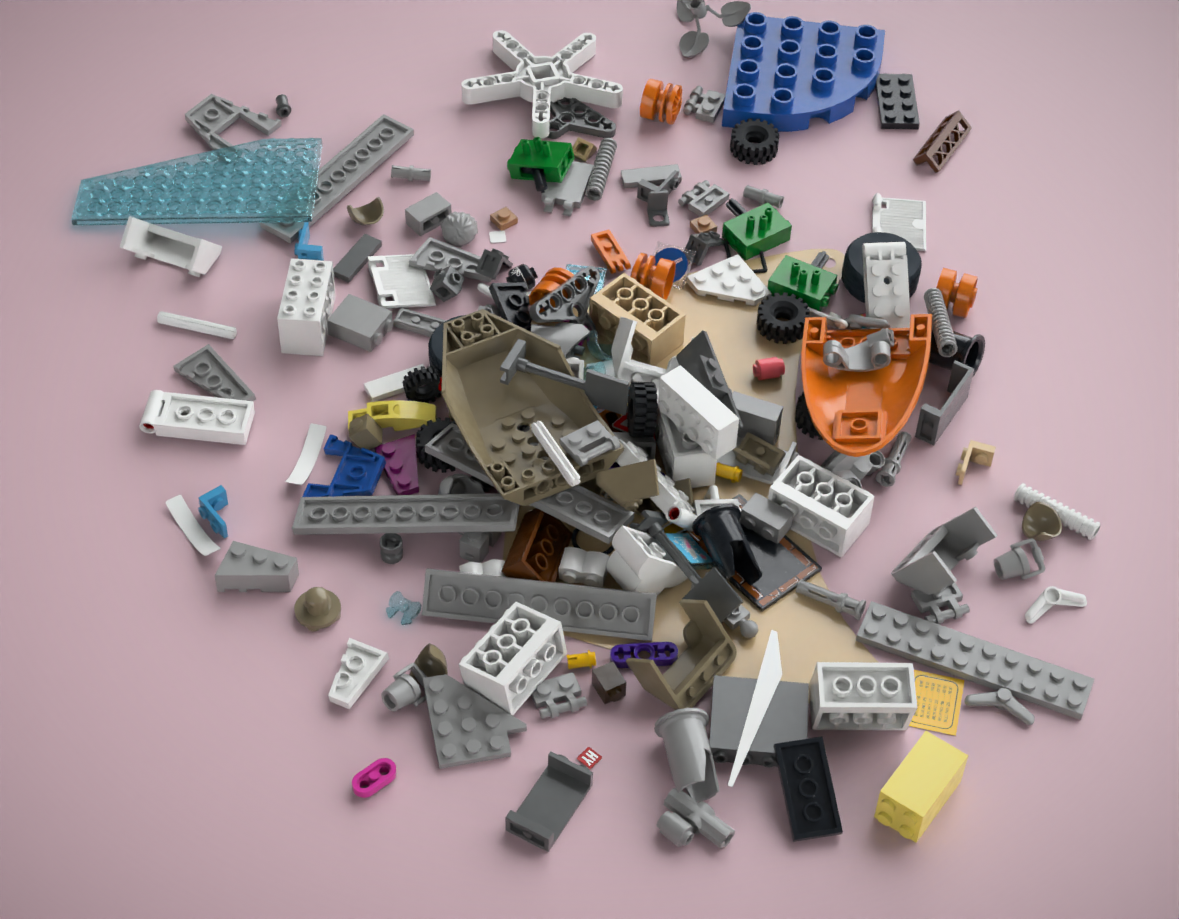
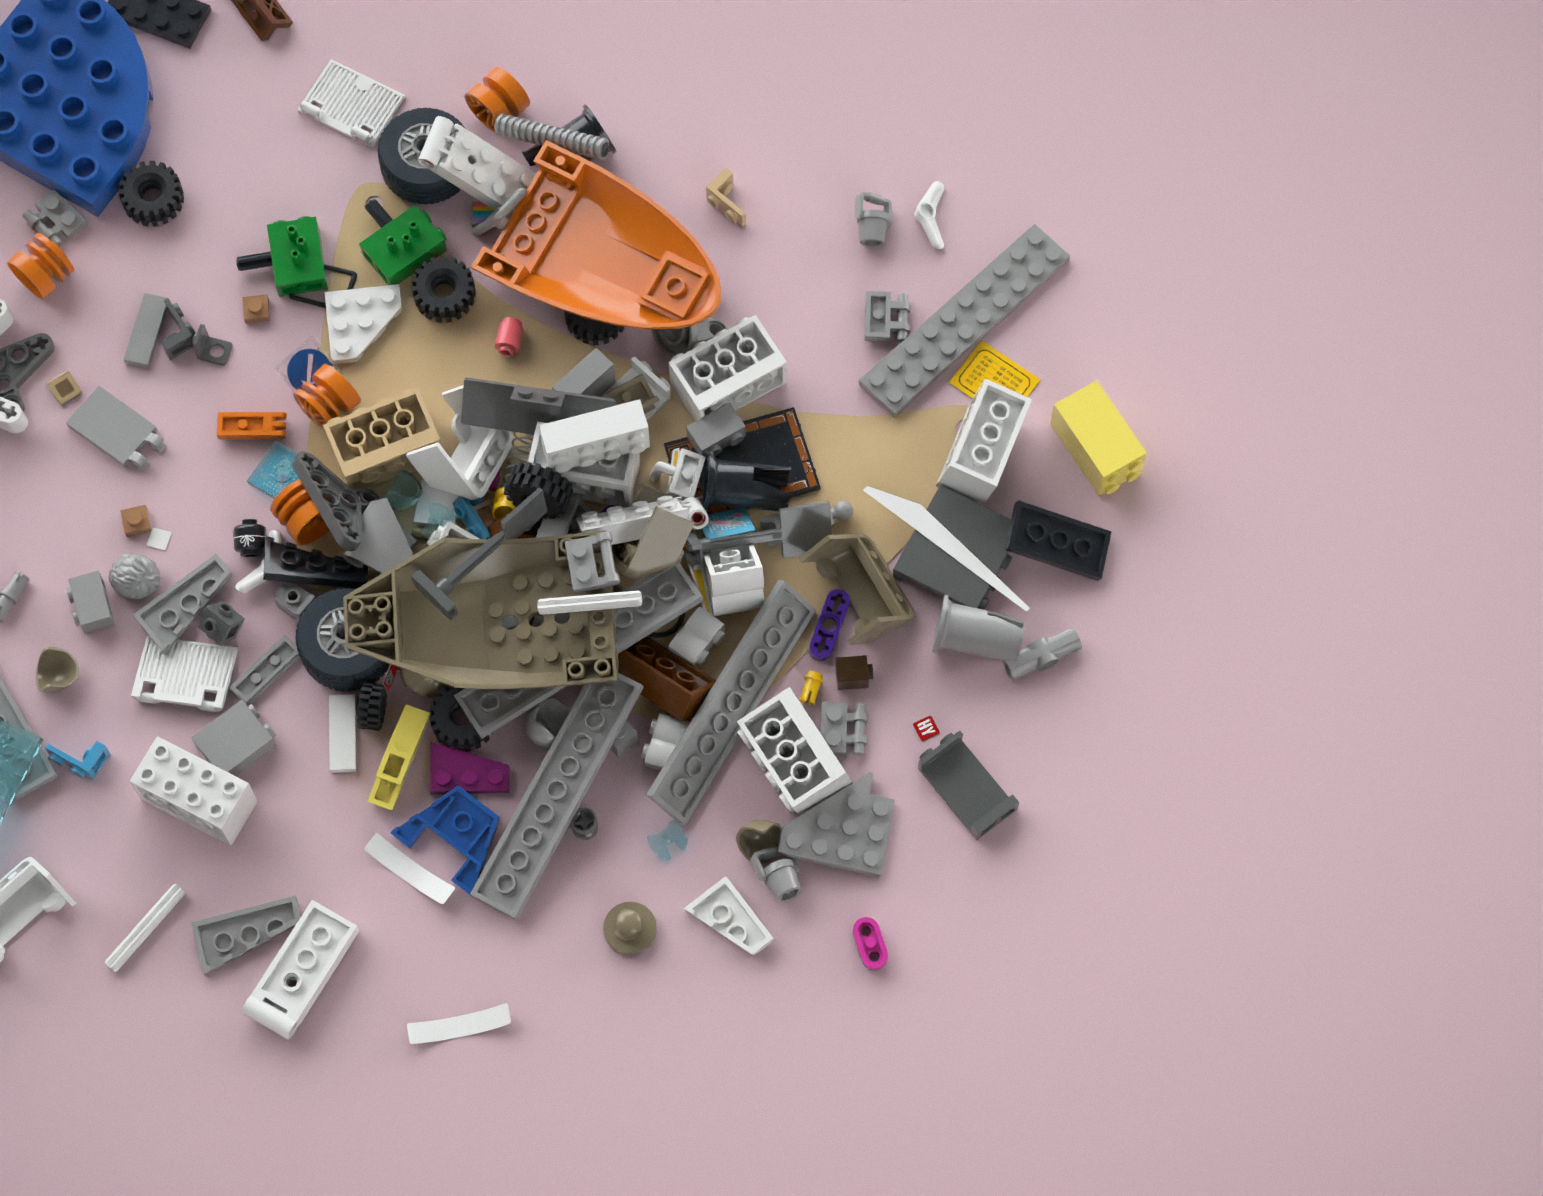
camera: 65 degrees left, 20 degrees up
(209, 504) = (444, 1003): dark azure bracket -> none
(256, 568) = (552, 975): light grey wedge -> none
(356, 258) = (120, 709): dark grey tile -> none
(365, 432) = (413, 793): dark tan brick -> none
(491, 263) = (218, 559): dark grey bracket -> none
(540, 161) = (71, 443): green piece -> none
(601, 169) = (111, 380): light grey piece -> none
(675, 828) = (1046, 680): light grey brick -> none
(701, 242) = (291, 322): dark grey bracket -> none
(708, 198) = (222, 287): light grey plate -> none
(763, 196) = (243, 224): light grey pin -> none
(832, 319) = (469, 241): white piece -> none
(843, 602) = (848, 409): light grey pin -> none
(866, 356) = (558, 231): light grey panel -> none
(931, 561) = (831, 293): light grey windscreen -> none
(933, 421) = (626, 154): dark grey panel -> none
(1002, 700) = (1020, 319): light grey piece -> none
(1041, 522) = (836, 175): dark tan helmet -> none
(1067, 516) = (824, 152): white piece -> none

